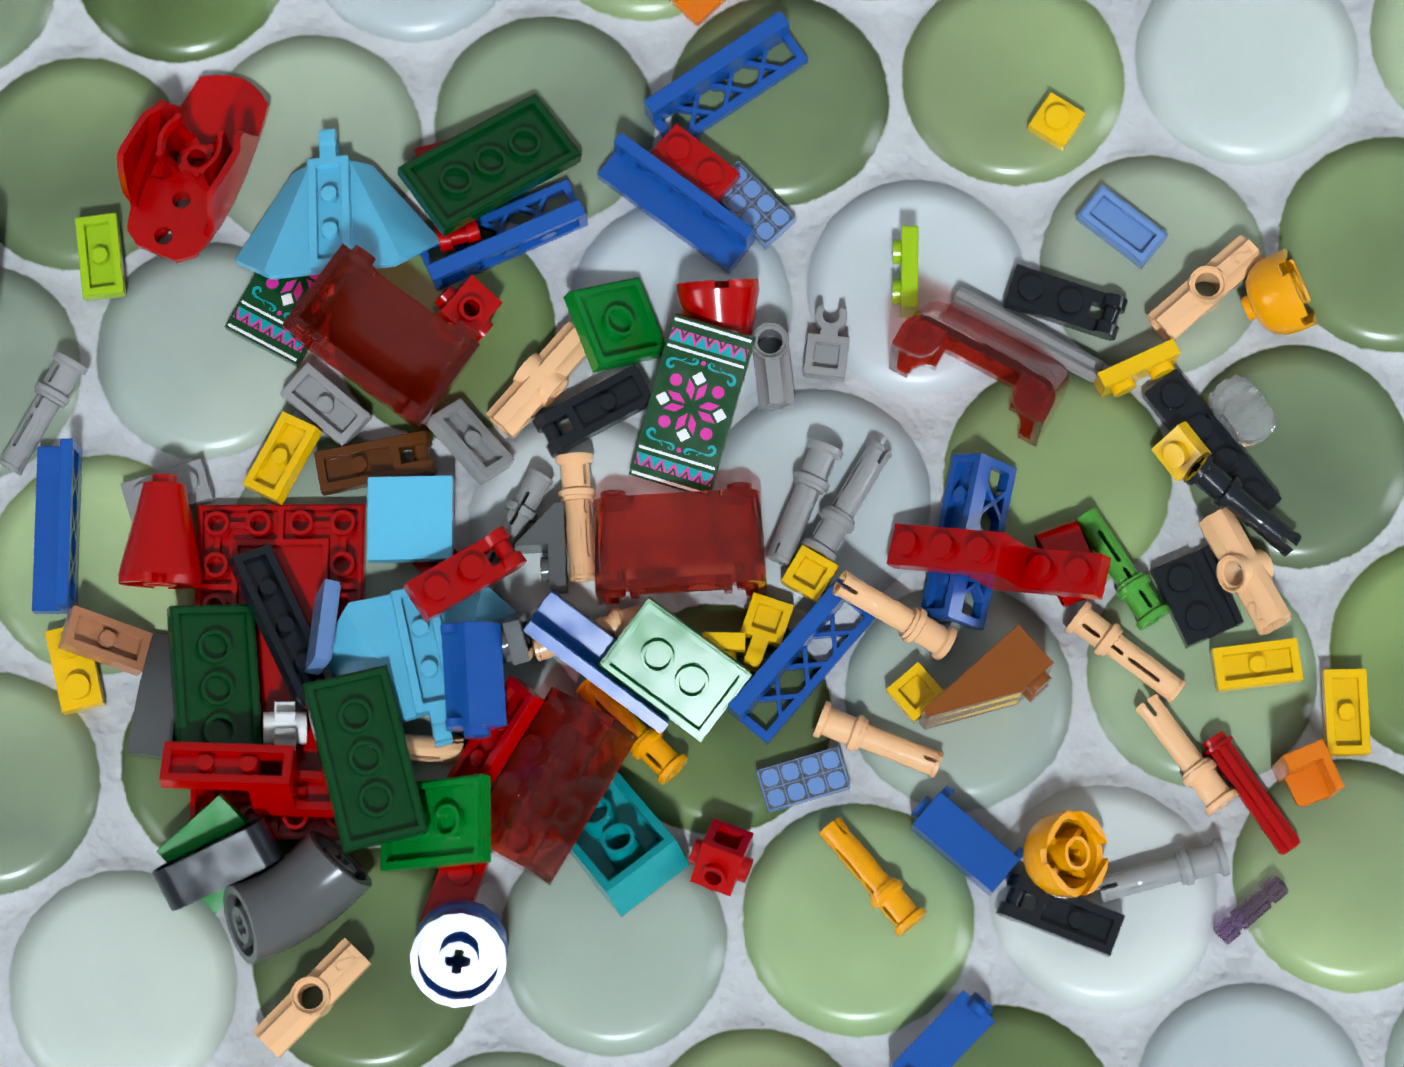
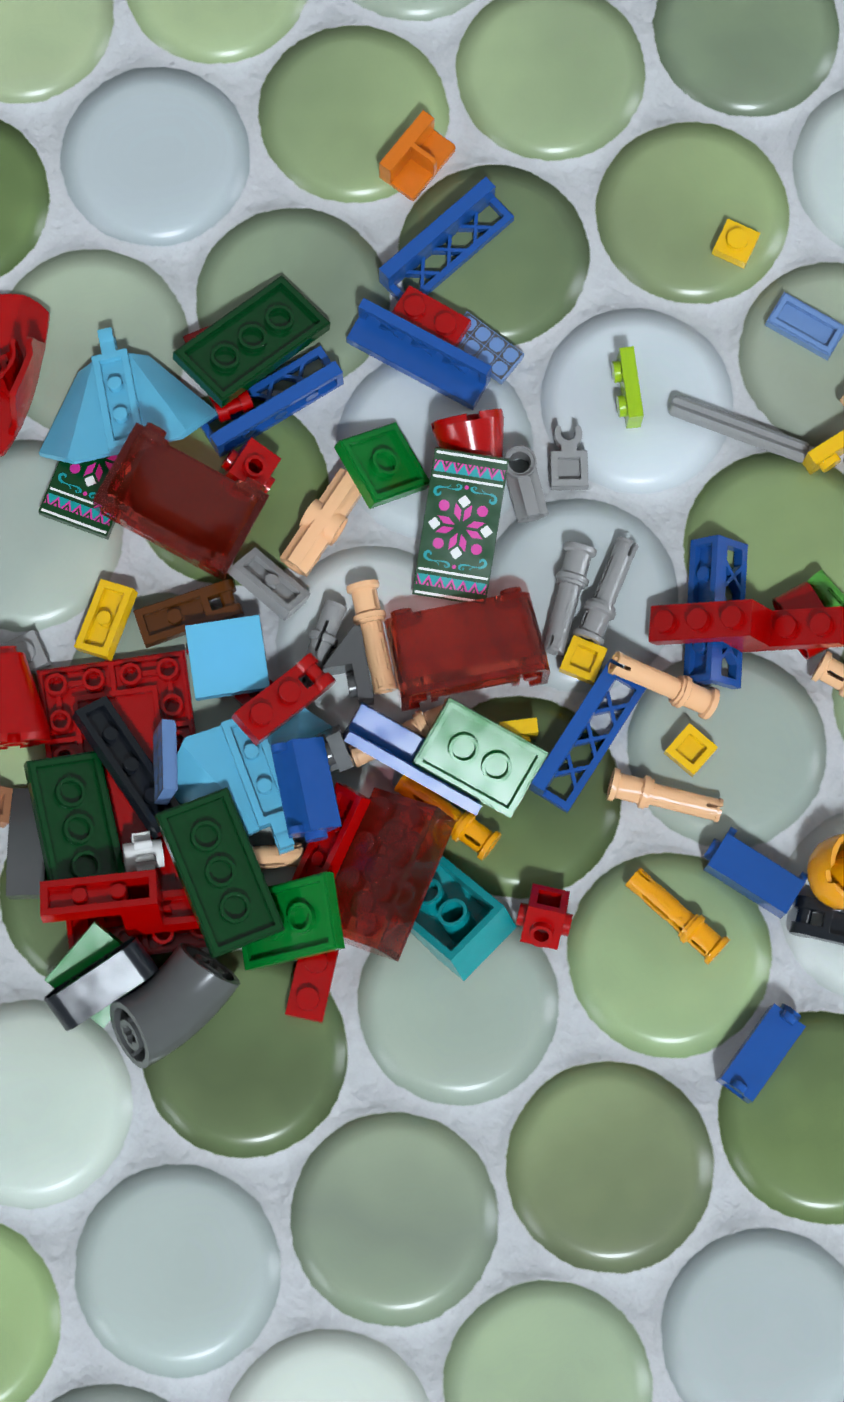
camera: 15 degrees left, 0 degrees up
(291, 1018) = (186, 1112): light nougat piece -> none
(325, 405) = (137, 568): light grey plate -> none
(457, 978) = (329, 1055): wheel -> none
(594, 410) = (374, 542): black plate -> none
(764, 625) = (552, 709): yellow plate -> none
(803, 779) = (604, 839): medium blue tile -> none
(942, 329) = (752, 464): clear red windscreen -> none
(998, 680) = (769, 723): dark orange slope -> none
(1064, 302) = (767, 397): black plate -> none

